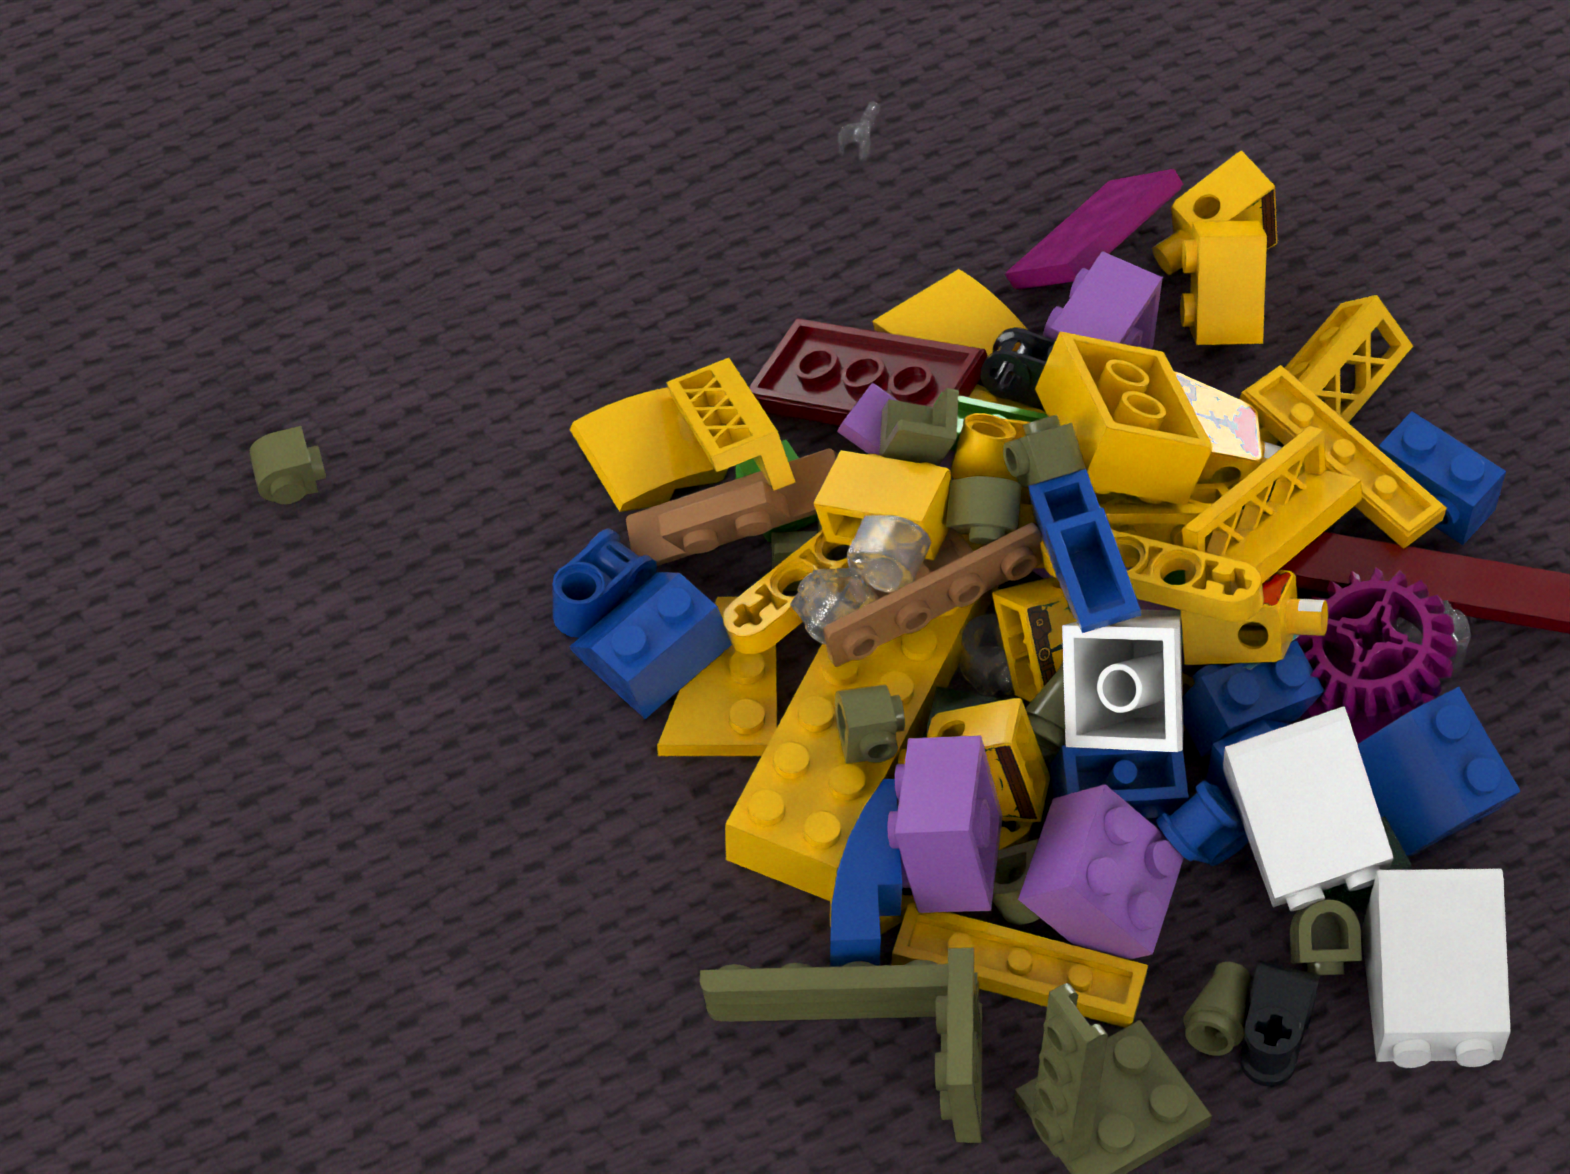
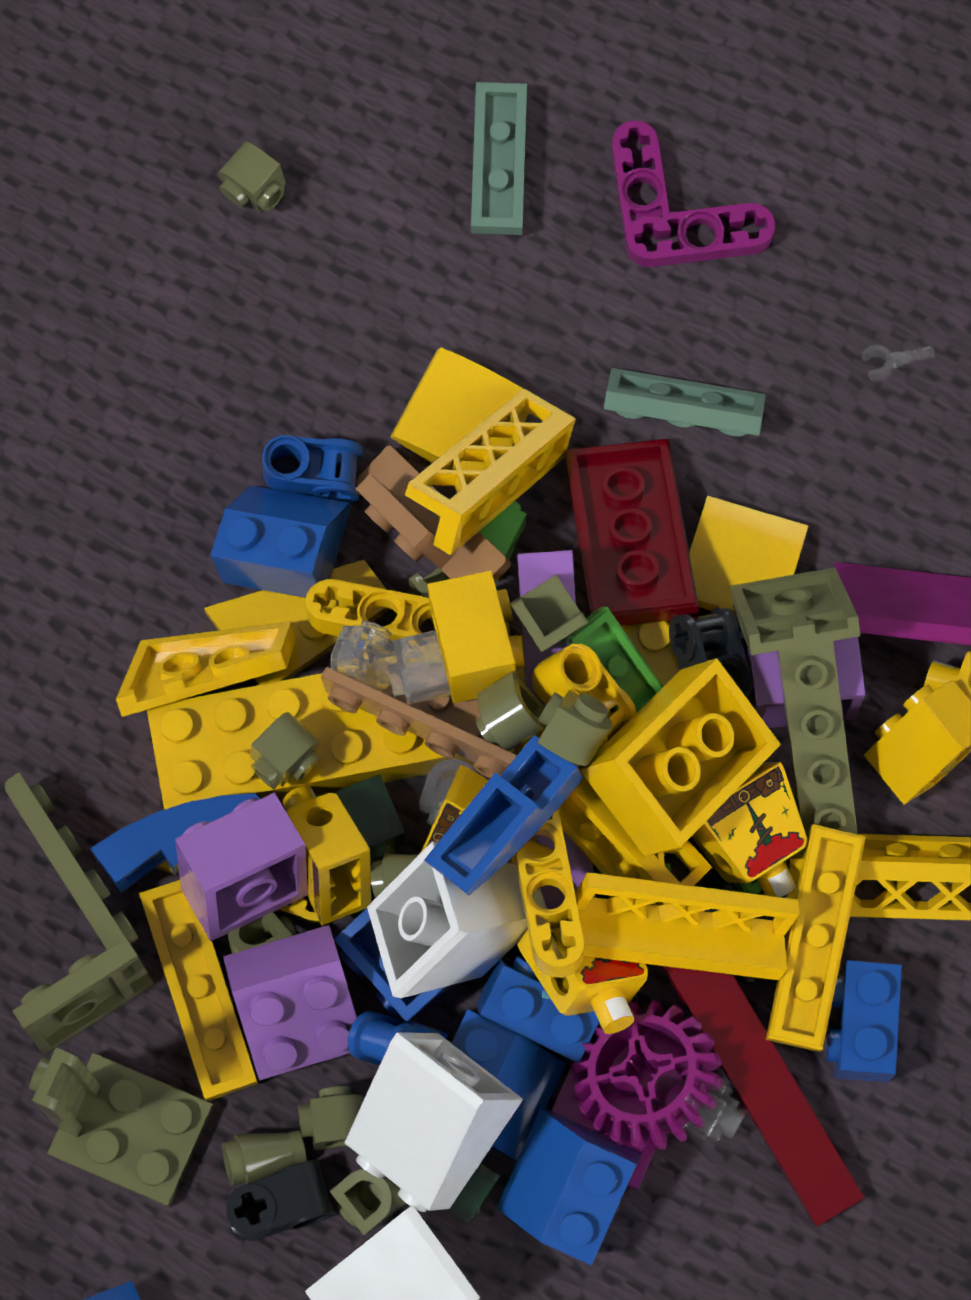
camera: 55 degrees right, 20 degrees up
(437, 284) = (498, 158): none -> sand green plate
(592, 211) = (658, 219): none -> magenta beam
(718, 761) = (201, 662): none -> yellow wing
(776, 286) = (684, 402): none -> sand green plate
(1086, 264) = (800, 621): none -> olive bracket
(1229, 927) = (329, 1117): none -> olive plate

